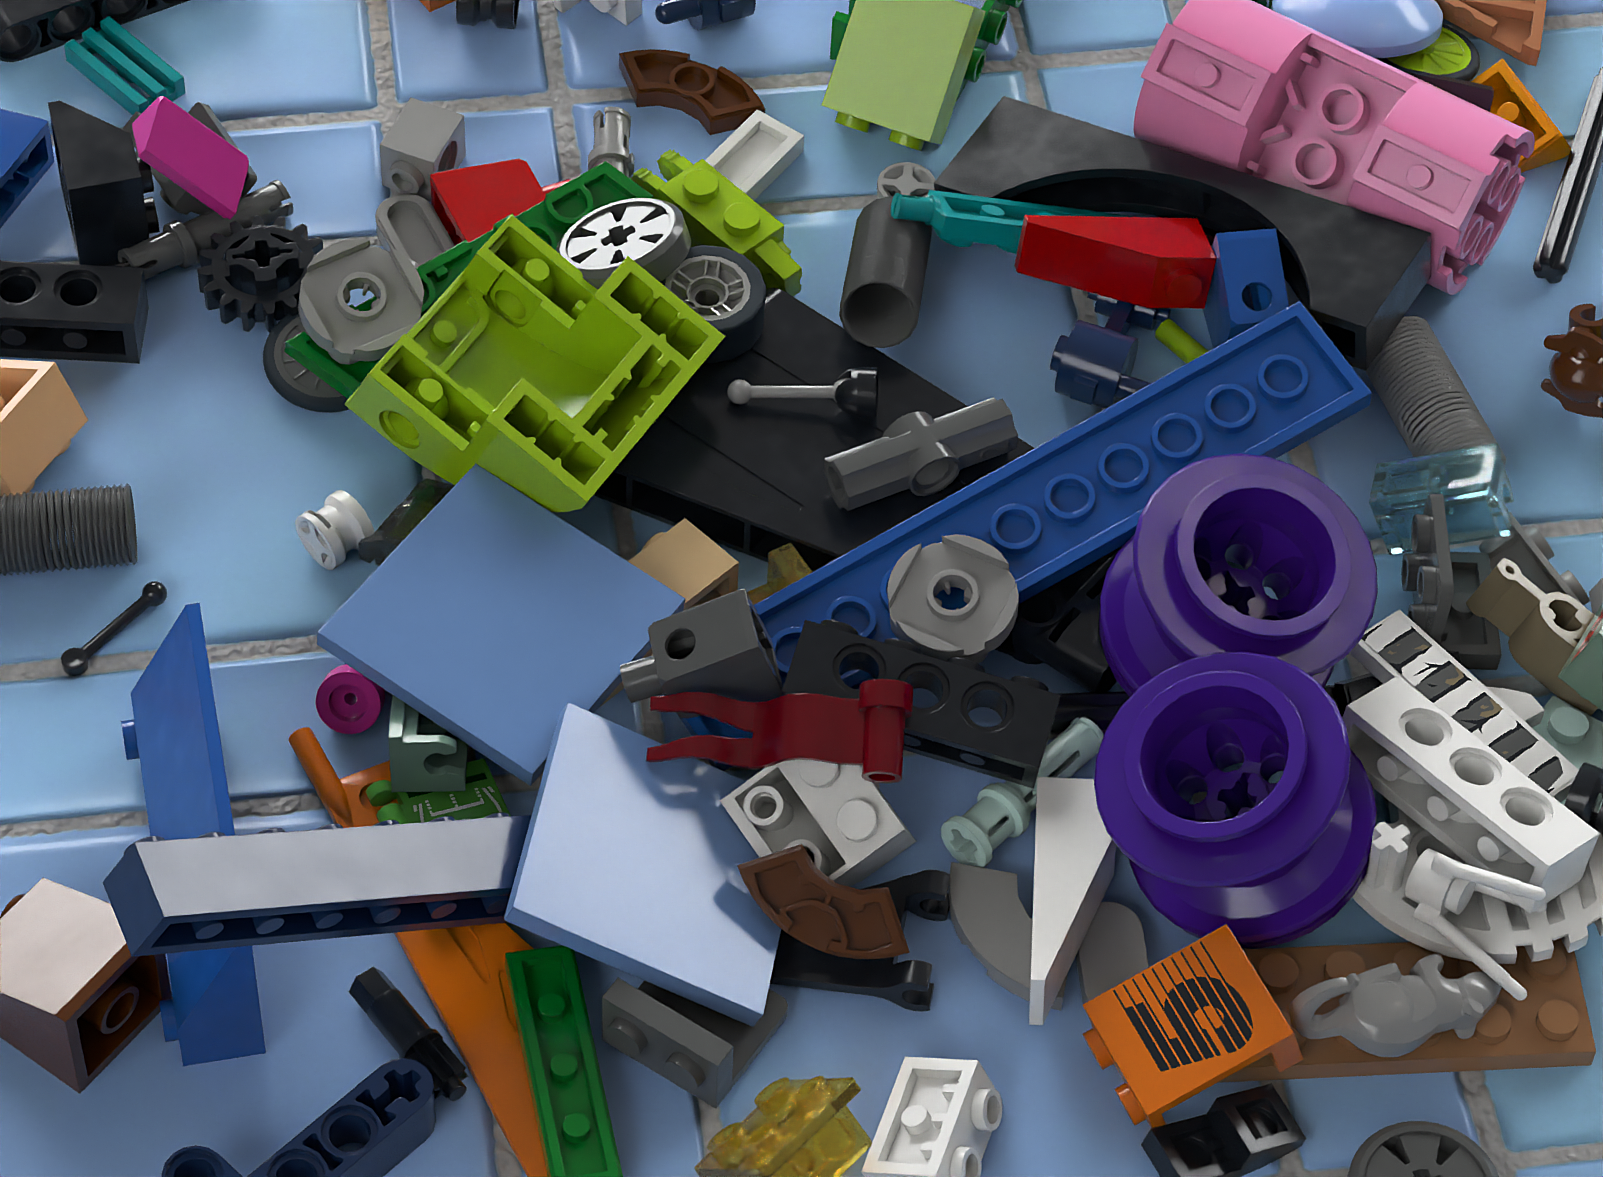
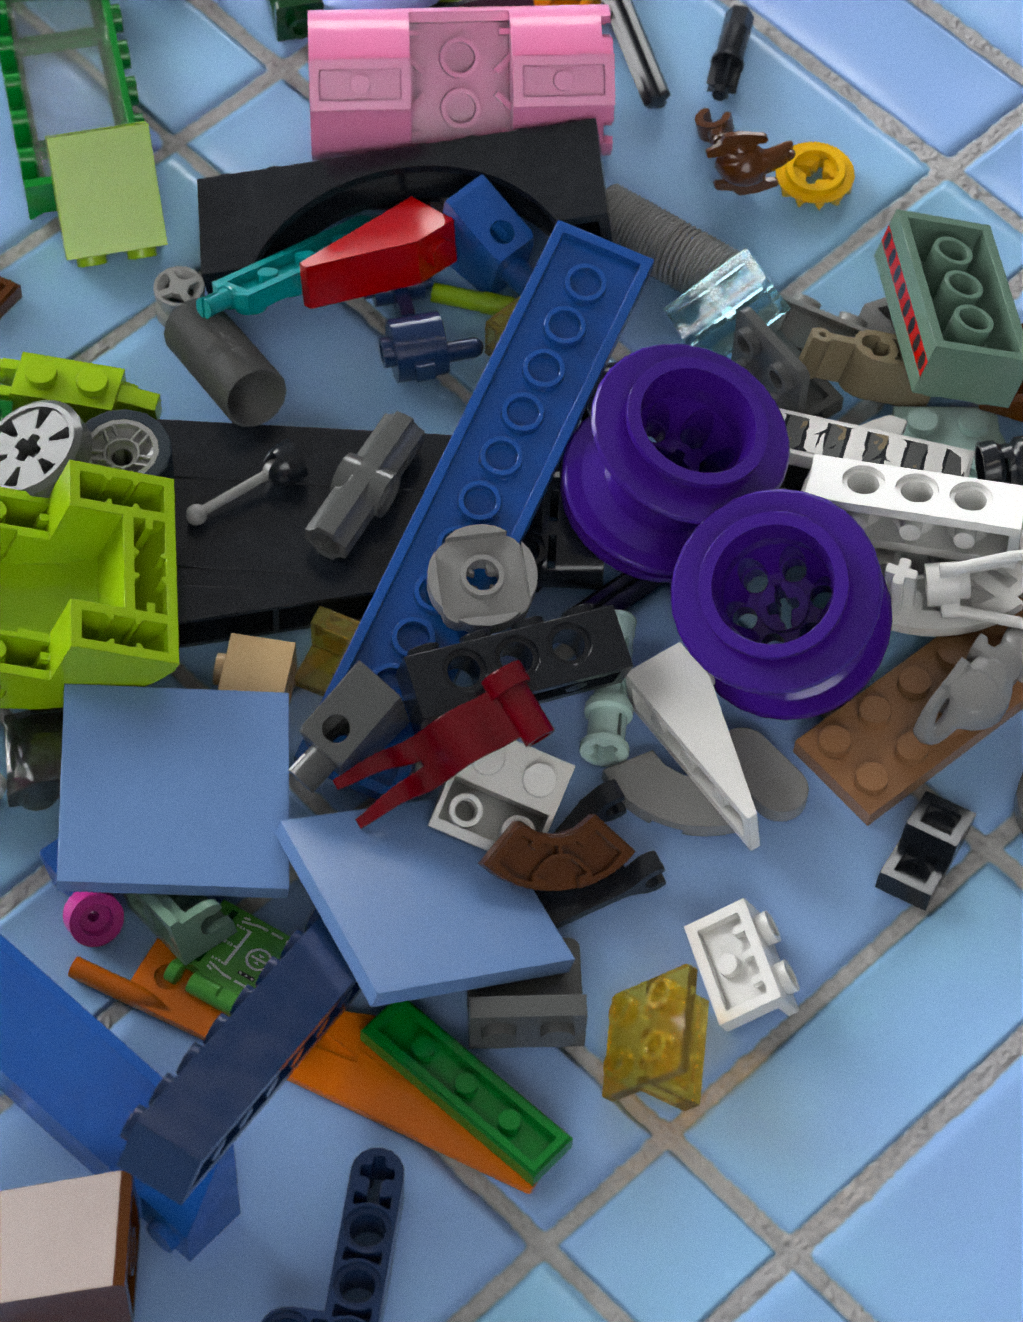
camera: 35 degrees left, 5 degrees up
(409, 1032) = (334, 1130): black piece -> none
(757, 153) = (39, 323): white tile -> none
(1187, 1026) = (857, 788): orange panel -> none

